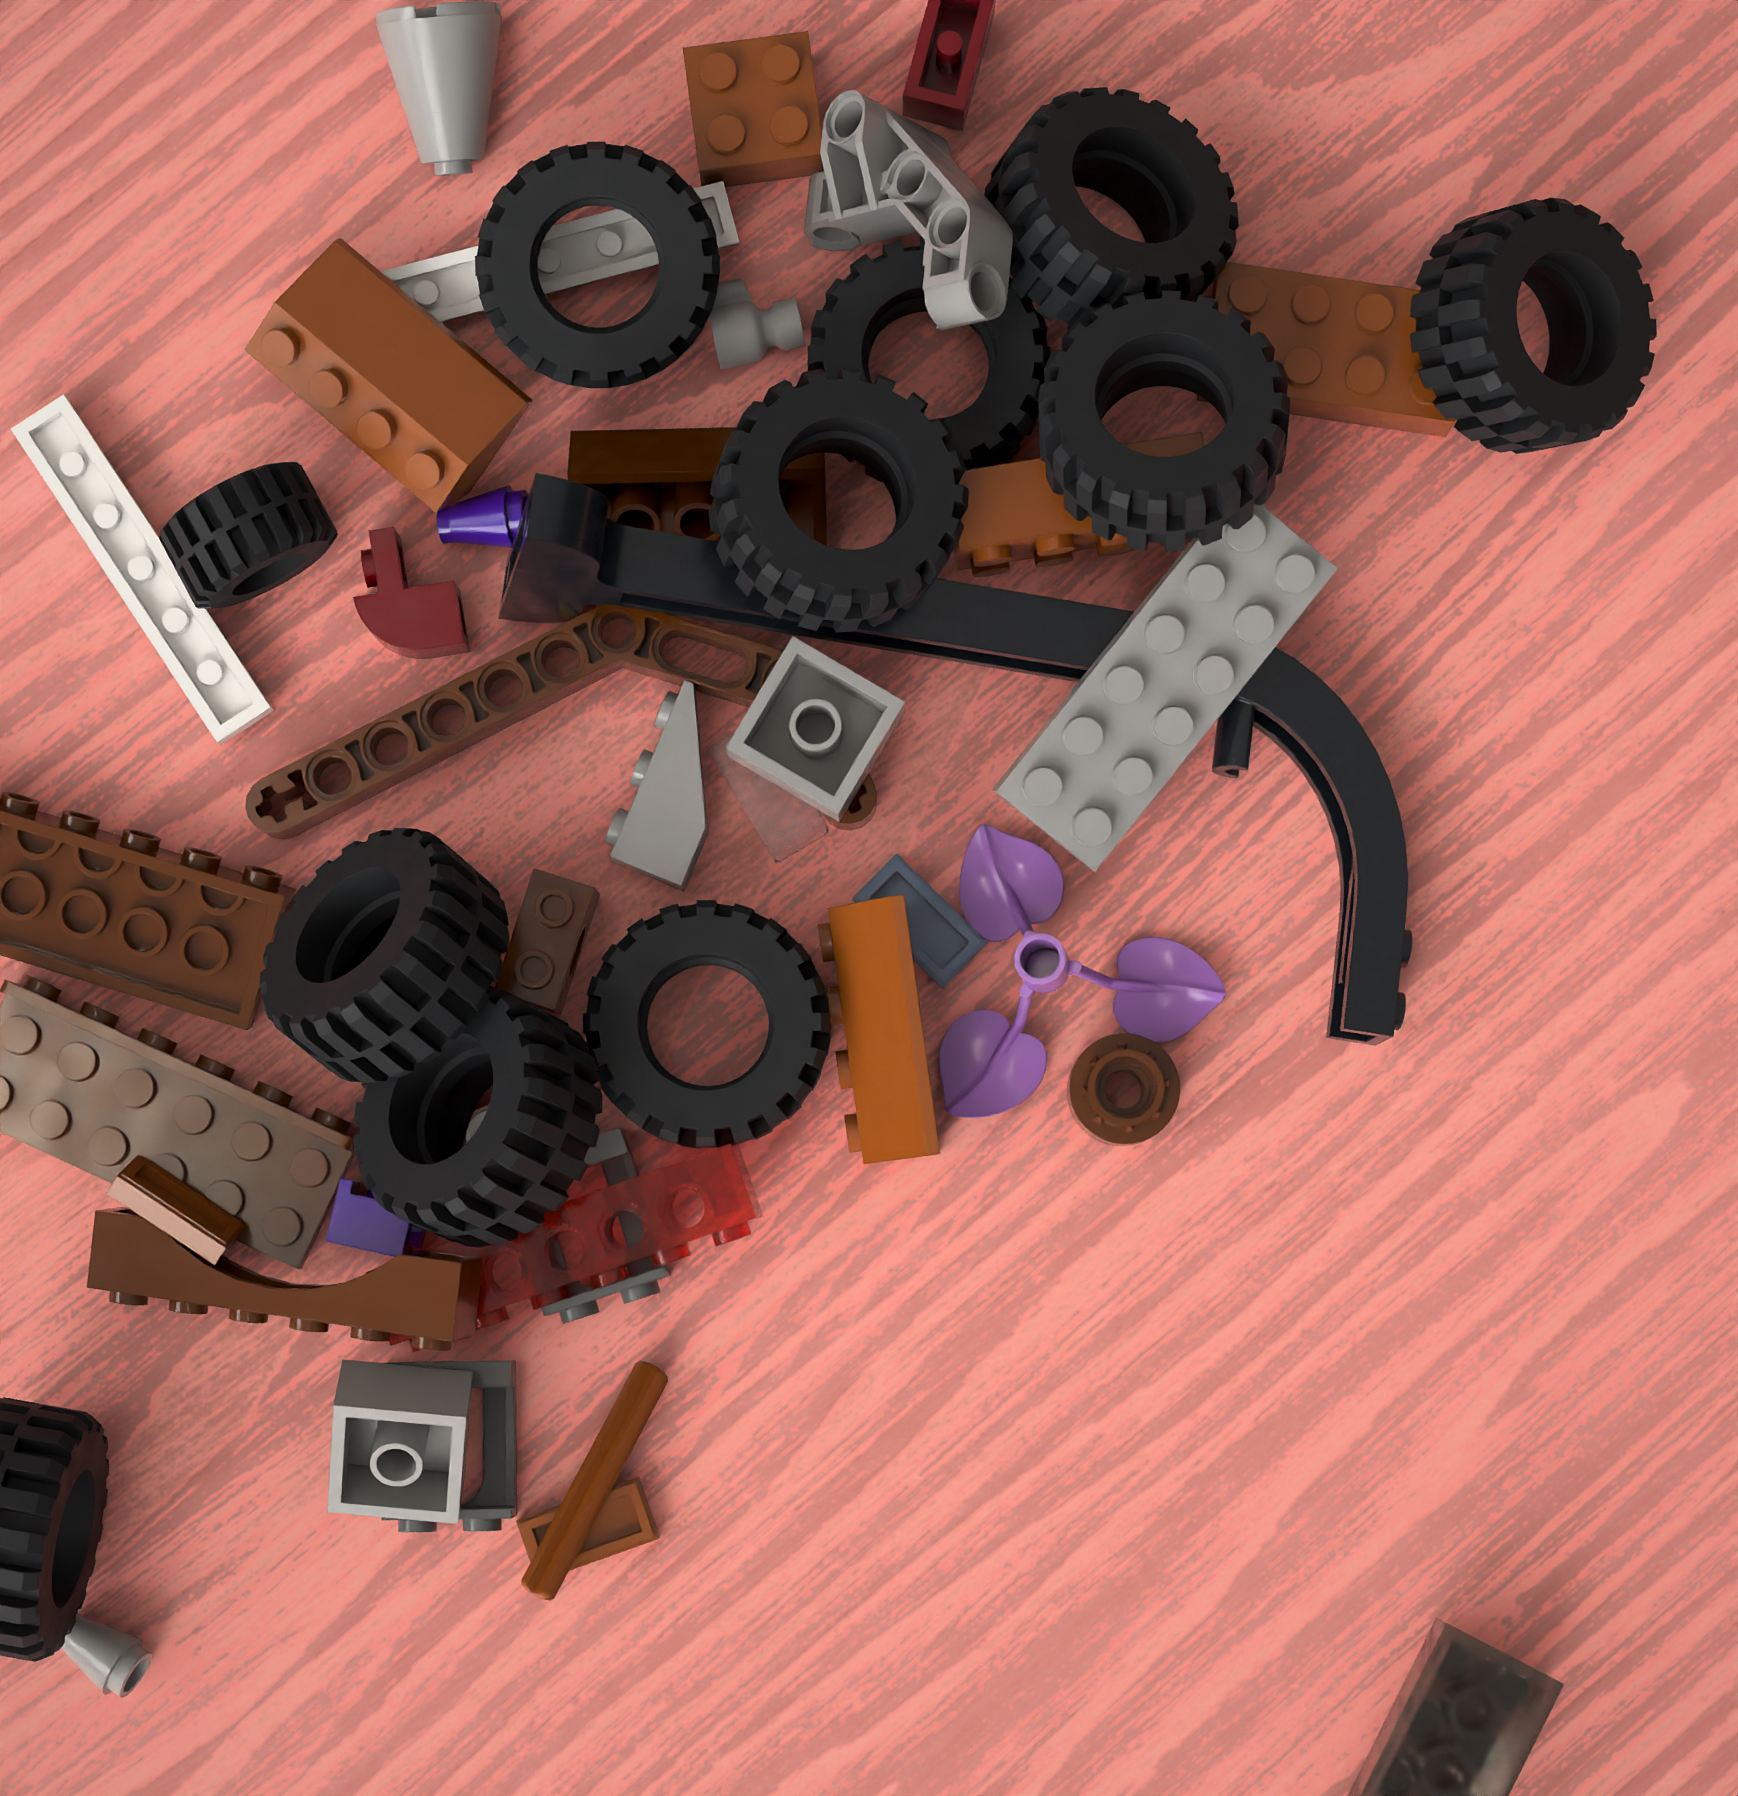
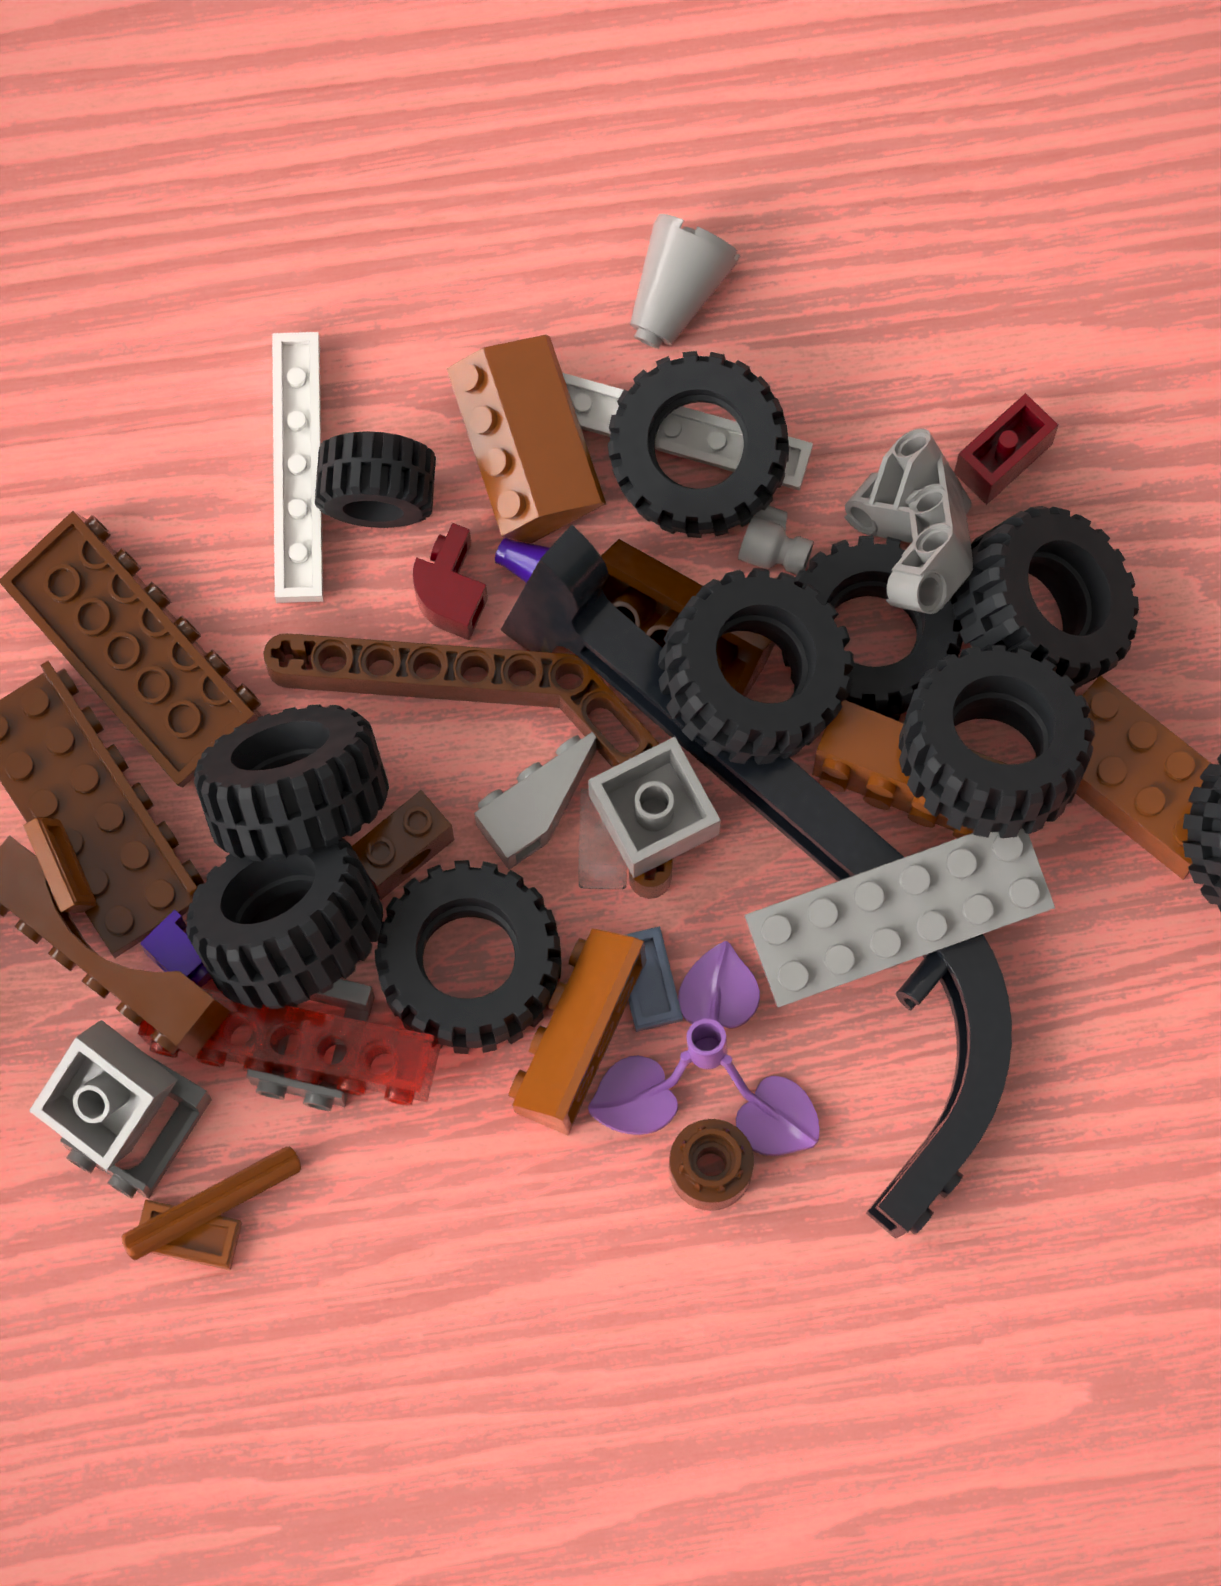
camera: 30 degrees right, 10 degrees down
(754, 109) = (859, 411): dark orange brick -> none

